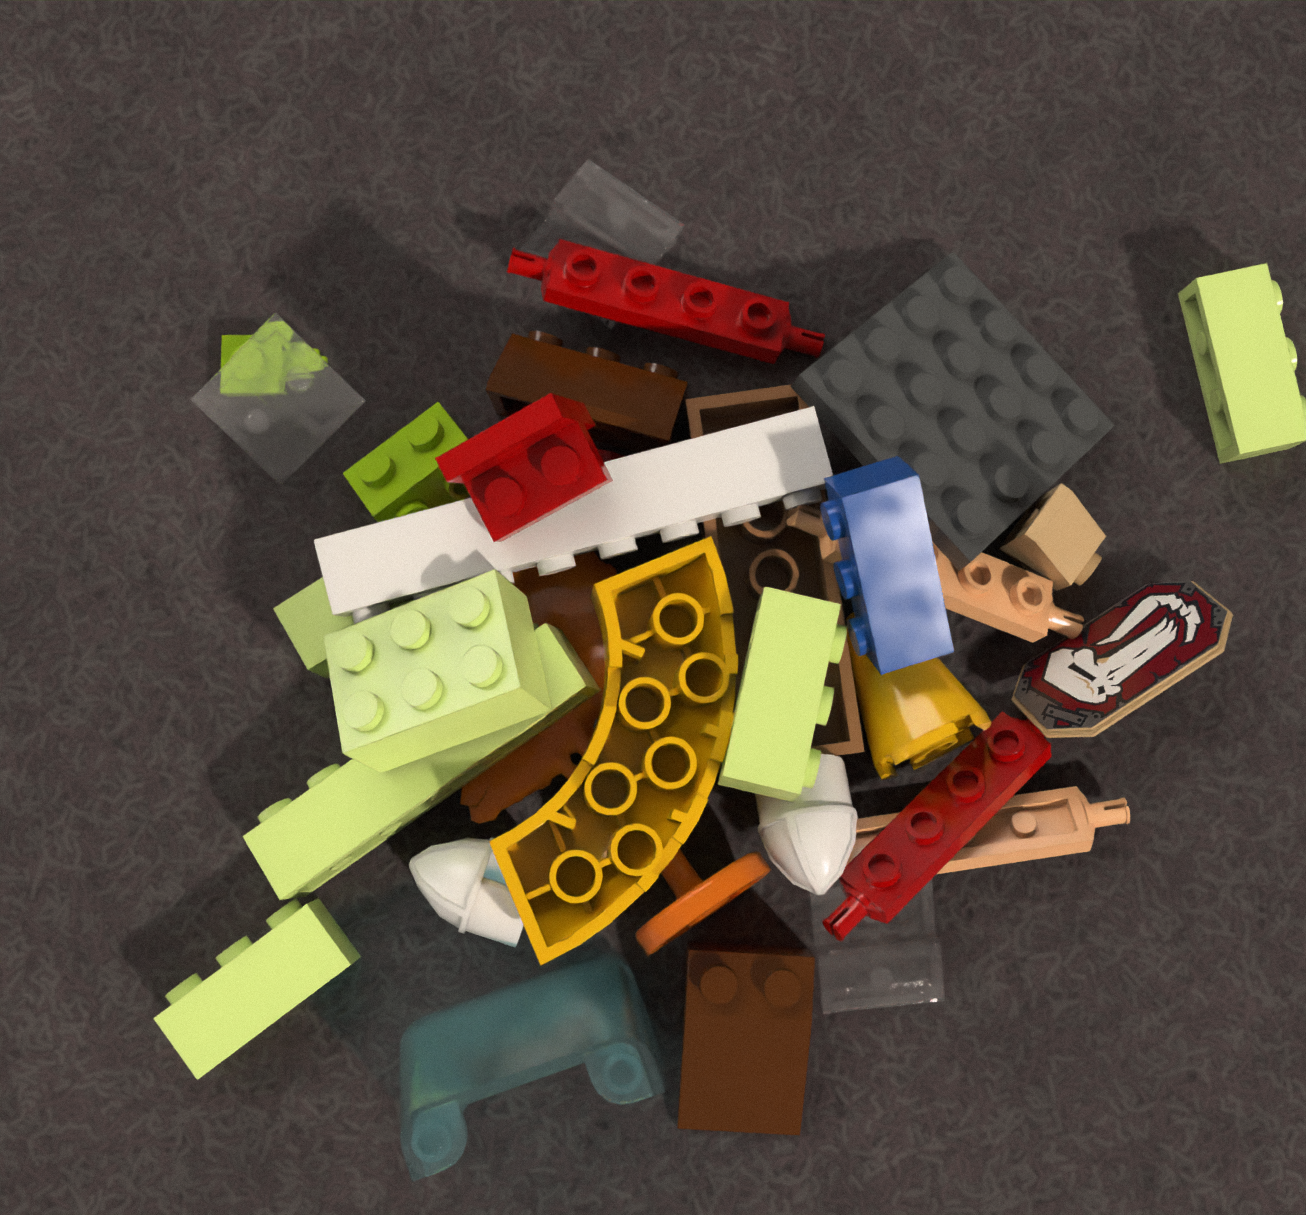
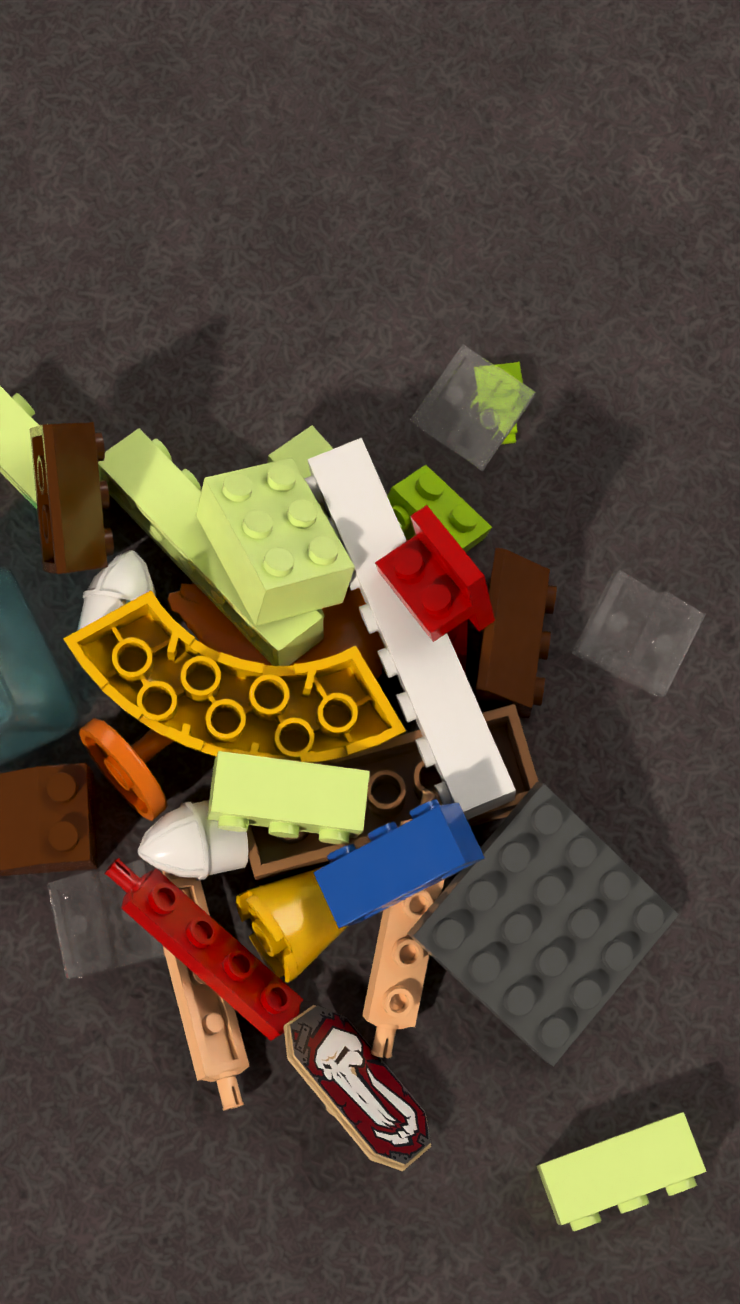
camera: 85 degrees right, 10 degrees down
(334, 936) = (70, 497): none -> reddish brown slope
(665, 301) = (597, 689): red plate -> none
(1056, 539) = (446, 1021): tan slope -> none

